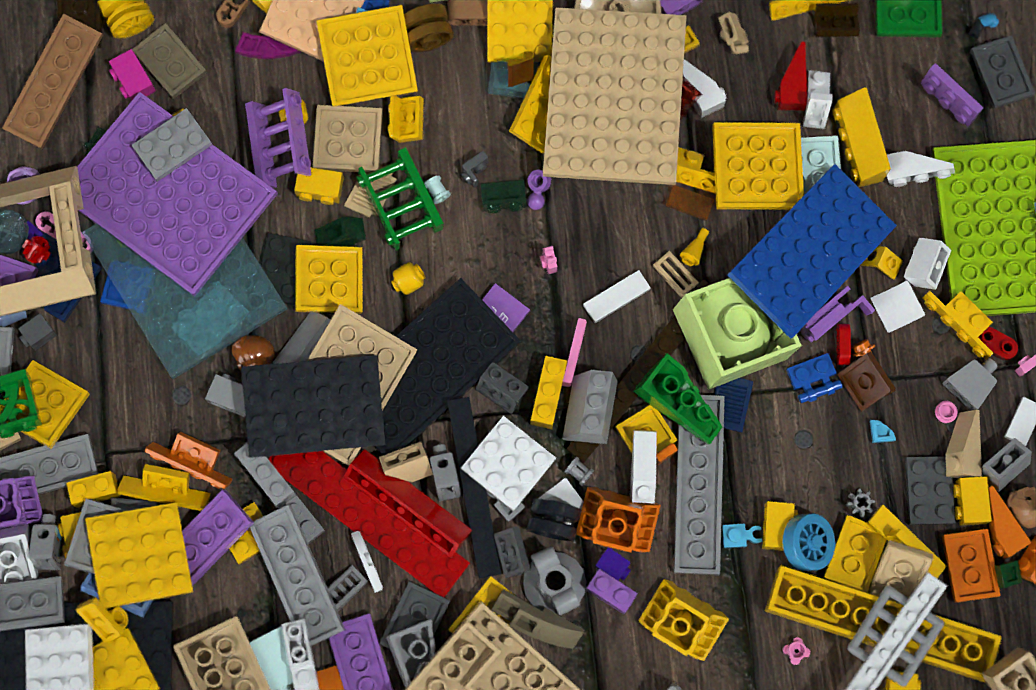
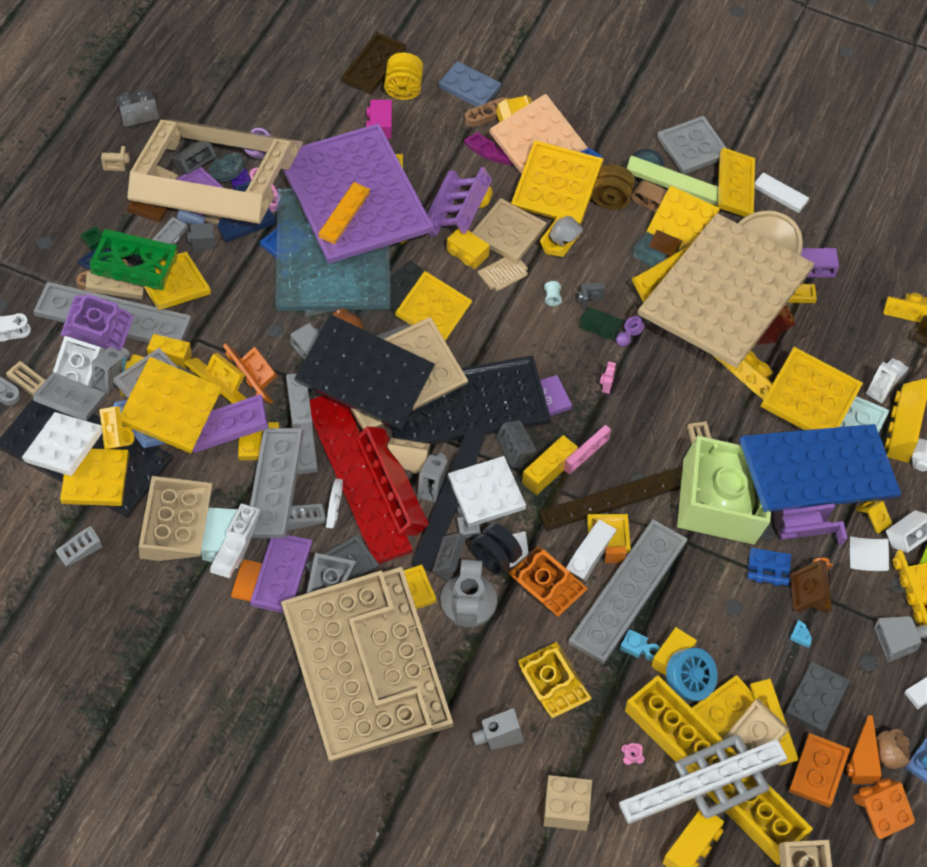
camera: 30 degrees right, 20 degrees down
(36, 249) = (238, 181): red gear -> none
(52, 81) = (323, 94): medium nougat plate -> none
(169, 61) = (413, 123): dark tan plate -> none
(172, 144) = (378, 163): light grey plate -> none
(175, 229) = (344, 213): none -> light orange plate
(341, 232) = (466, 283): clear green slope -> none
(408, 278) = (493, 337): yellow head -> none
(412, 112) = (565, 230): none -> light grey hair
(421, 200) = (537, 279): green fence -> none
(536, 623) = (437, 614): dark tan slope -> none
(579, 471) = (538, 530): light grey bush -> none
(590, 407) = (577, 490): light grey slope -> none
(611, 591) = (509, 626): medium lavender brick -> none
(614, 565) = (522, 609): dark purple brick -> none
(616, 296) = (645, 432): white tile -> none
(674, 395) = (648, 516): green wedge -> none
(690, 202) = (743, 399): clear orange tile -> none
(692, 253) = (724, 431): yellow cone -> none
(713, 96) = (802, 333): white slope -> none
(733, 33) = (847, 305): tan piece -> none
(736, 402) = (694, 551): dark blue window -> none
(793, 87) = (873, 357): red slope -> none
(843, 344) = (808, 553): red beam -> none
(866, 504) = (750, 670): light grey gear -> none
(946, 412) = (865, 647): bright pink plate -> none
(964, 448) = (862, 681): tan slope -> none
(972, 501) = (849, 721): yellow brick -> none
(1007, 464) = (894, 708): light grey brick -> none
(1008, 574) = (847, 790): dark green plate -> none

